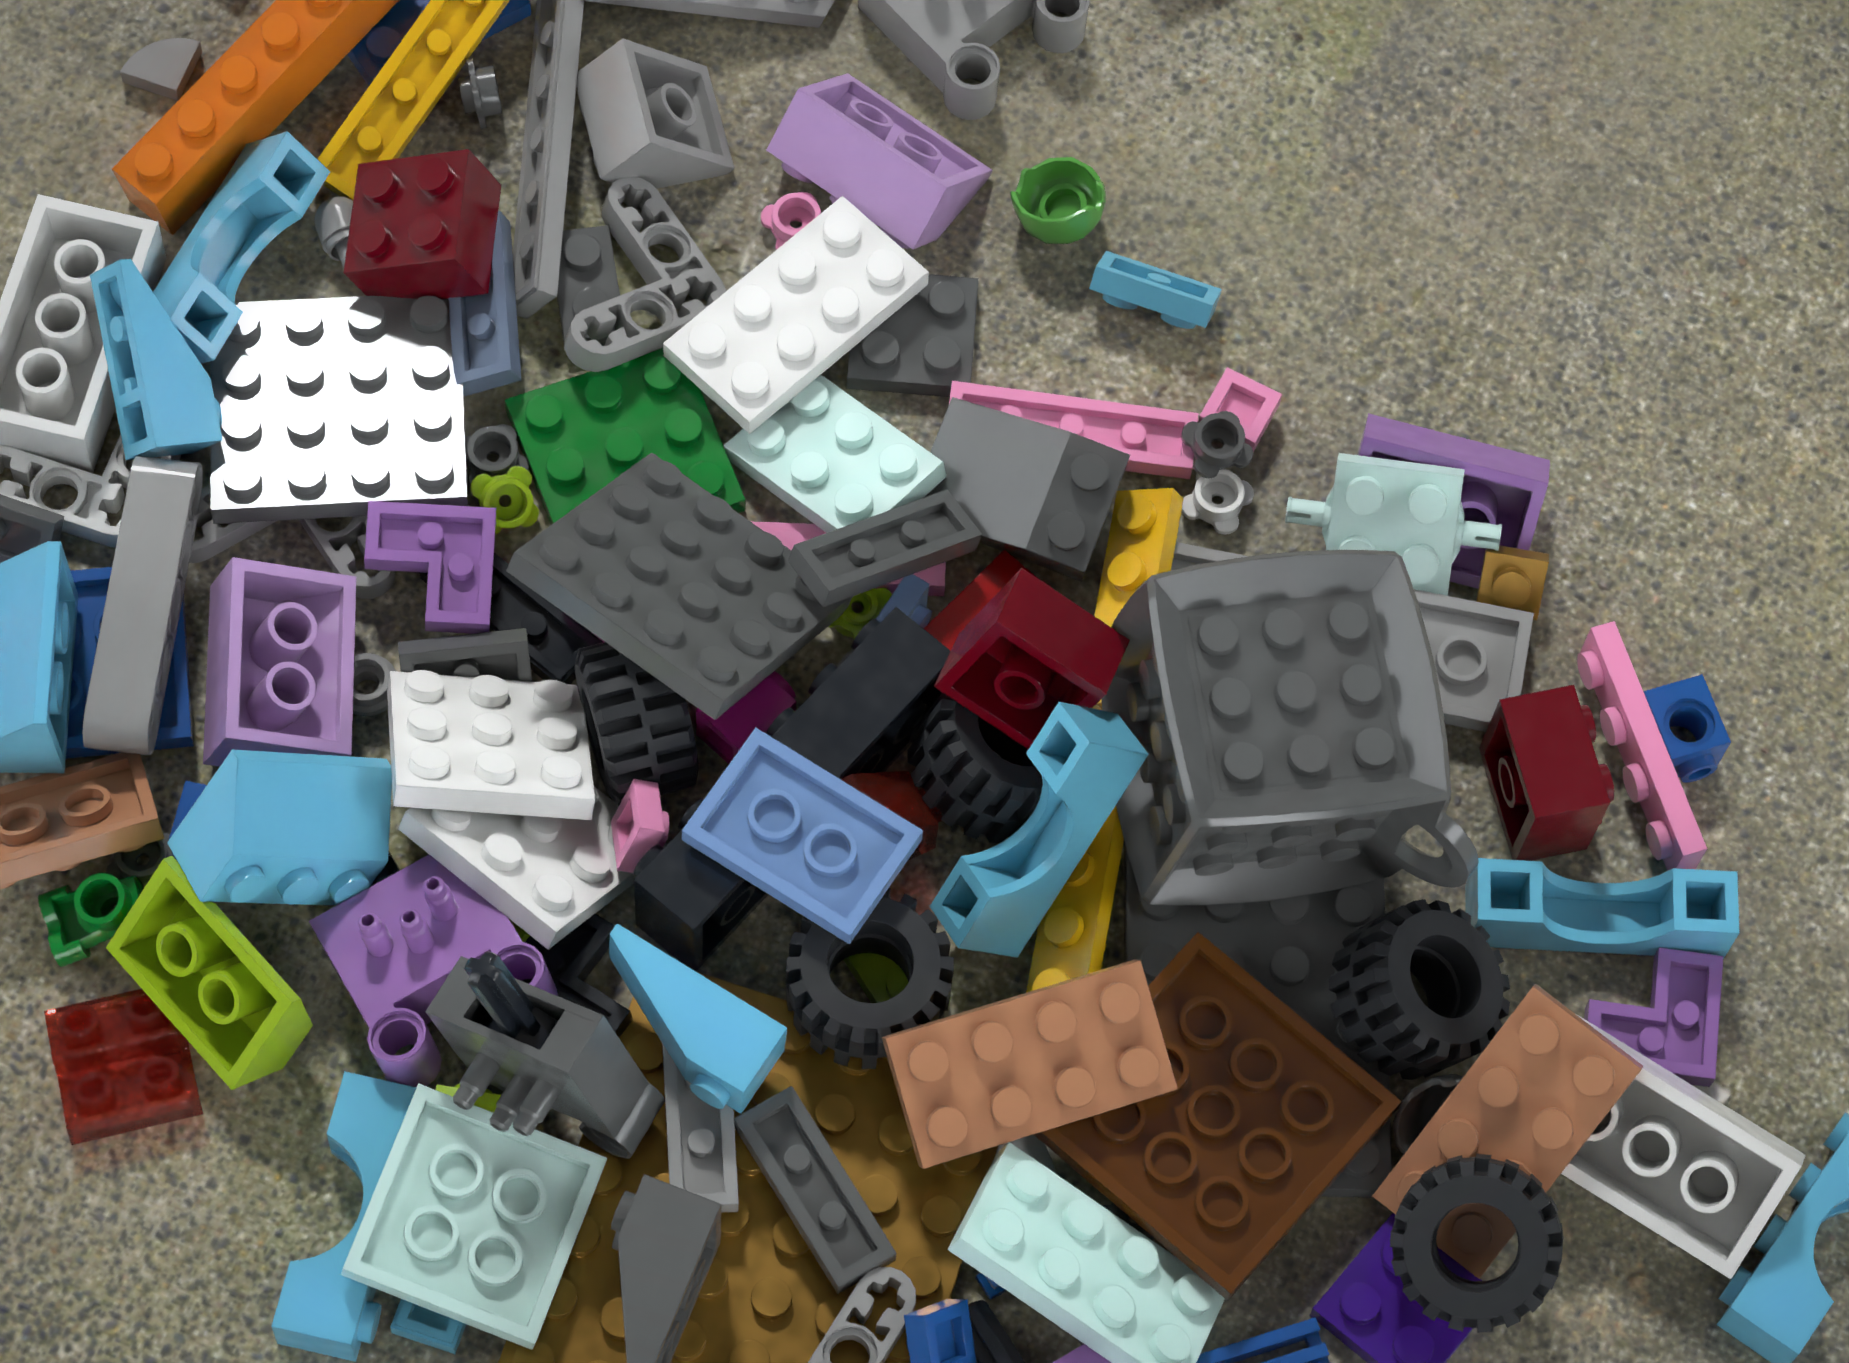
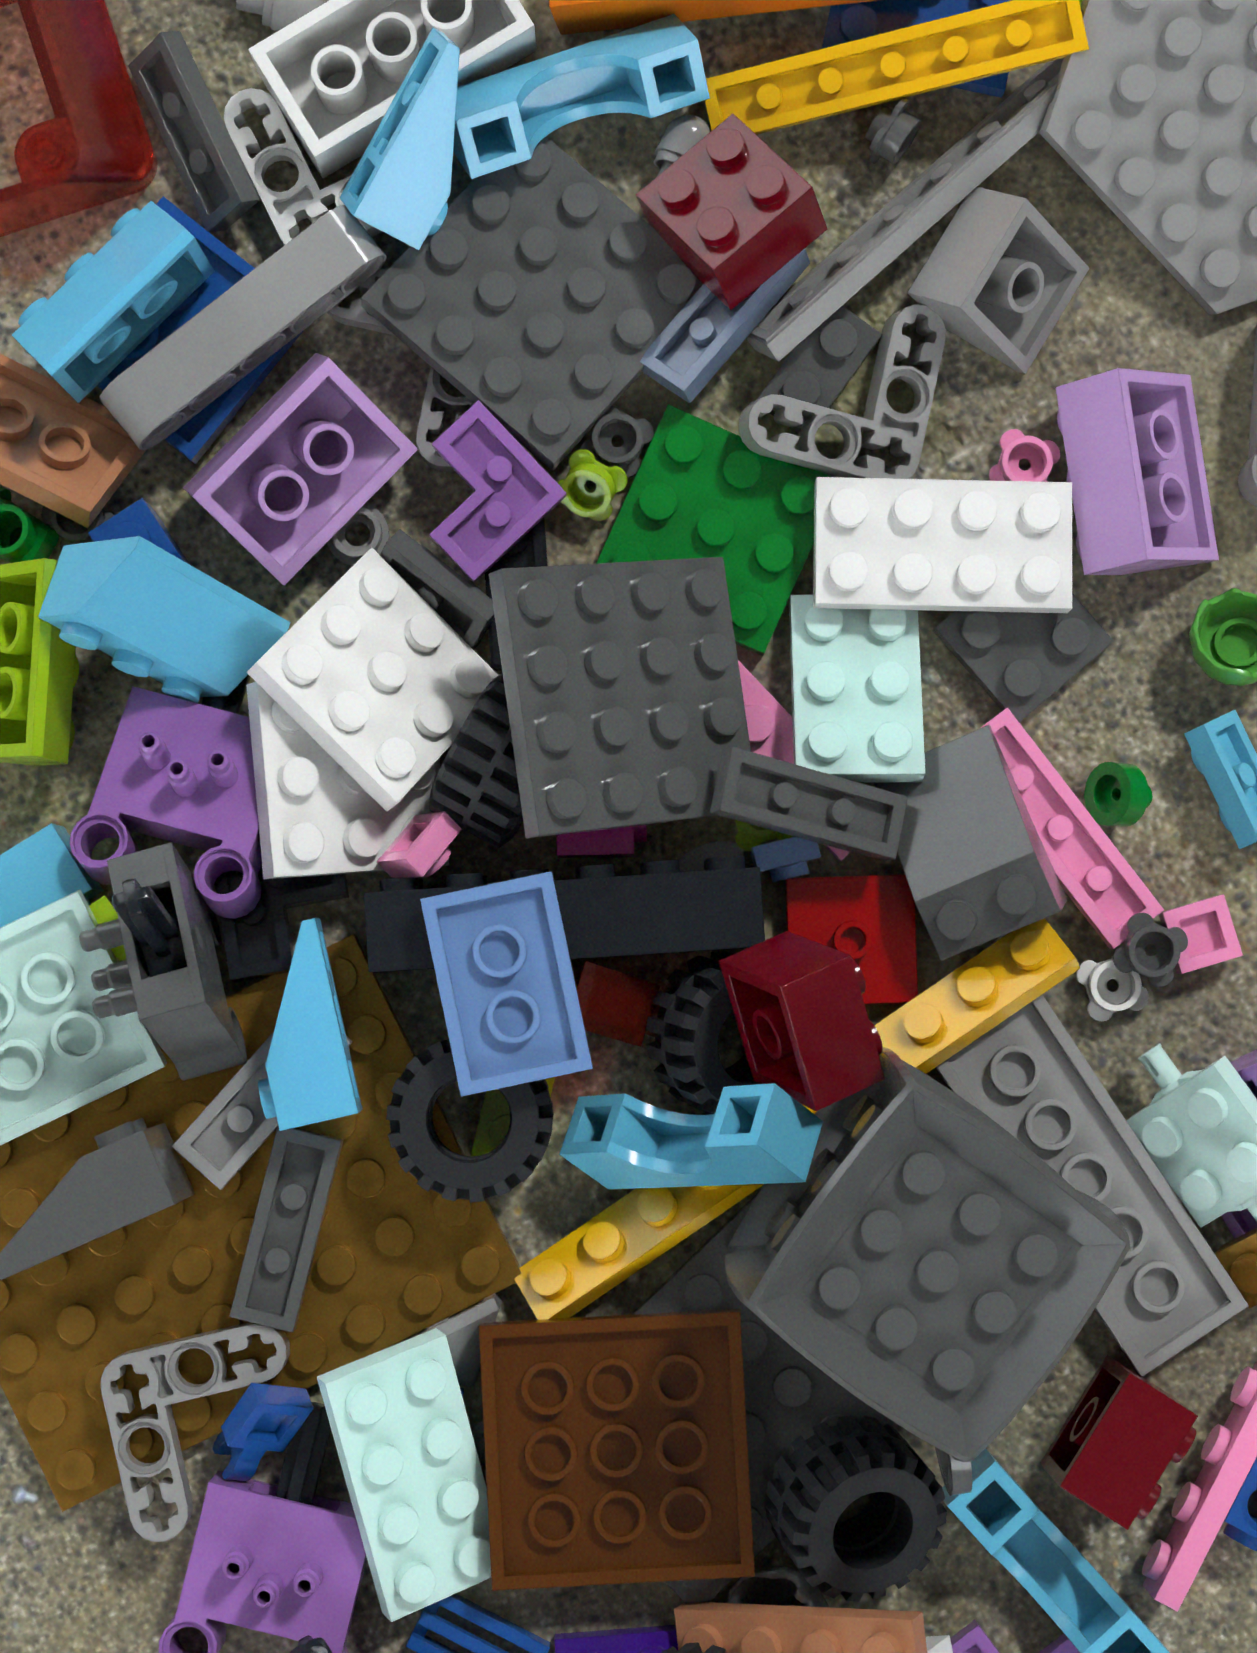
camera: 50 degrees right, 20 degrees up
(1029, 1063) = (511, 1300): nougat plate -> none
(1086, 369) = (1117, 794): none -> green tile

